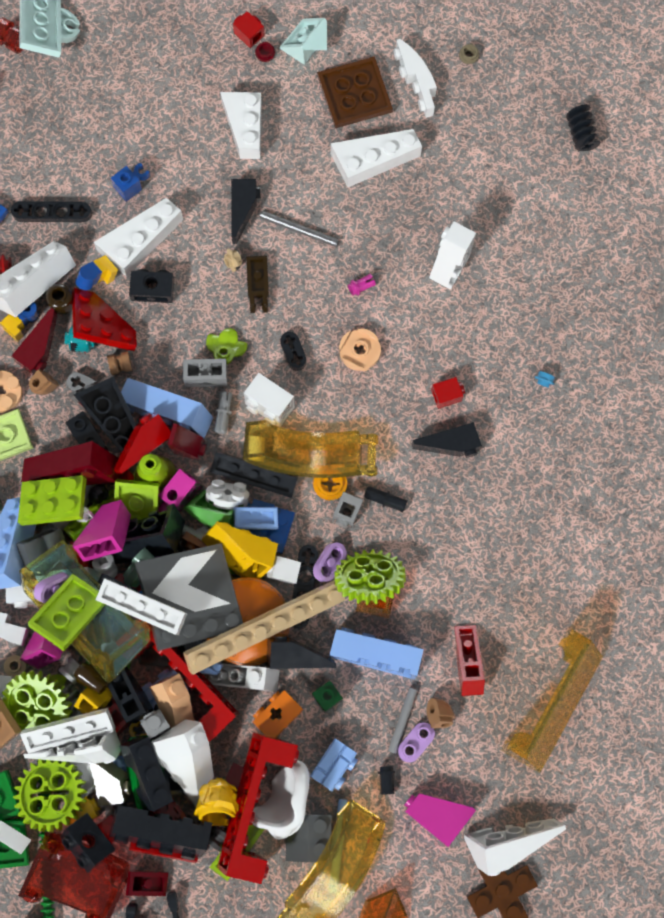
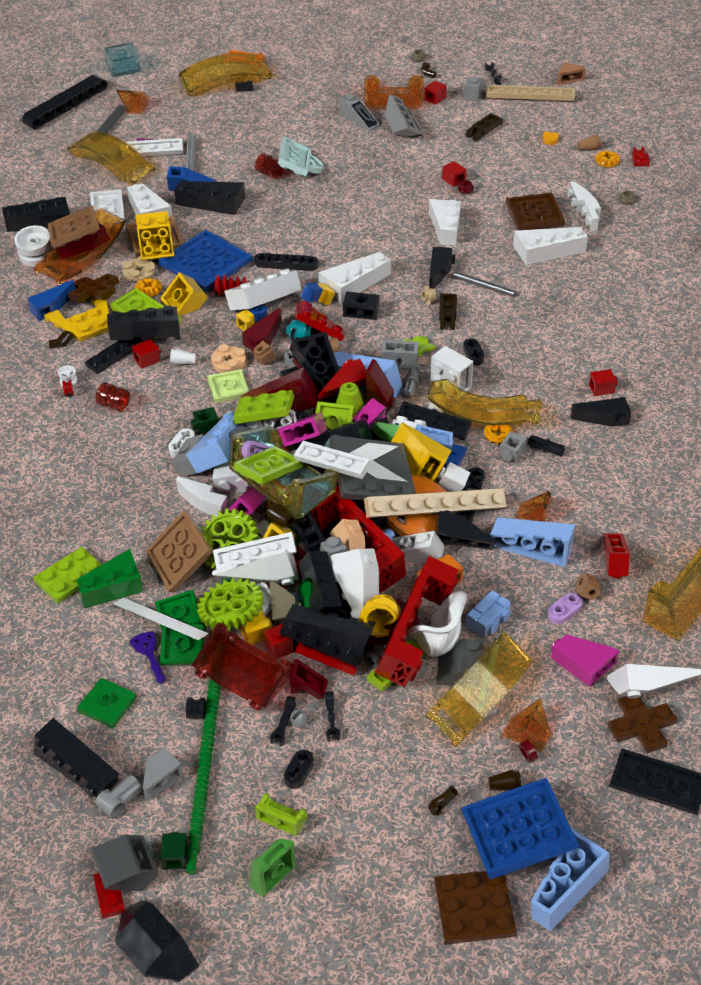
camera: 10 degrees right, 30 degrees down
(60, 298) = (287, 304): dark brown head -> none
(88, 831) = (260, 633): black brick -> none
(128, 182) = (349, 246): blue brick -> none
(306, 39) = (500, 182): light aqua slope -> none
(327, 696) = (486, 565): dark green brick -> none
(329, 562) = (495, 477): lavender plate -> none
(360, 285) = (530, 317): dark pink pin -> none
(361, 361) = (522, 356): light nougat plate -> none
(370, 576) = (530, 483): lime gear -> none
(386, 780) = (536, 630): black pin -> none
(404, 715) = (553, 592): light grey bar -> none
(453, 254) = (611, 294): white wedge -> none
(545, 379) = (687, 381): dark azure plate -> none

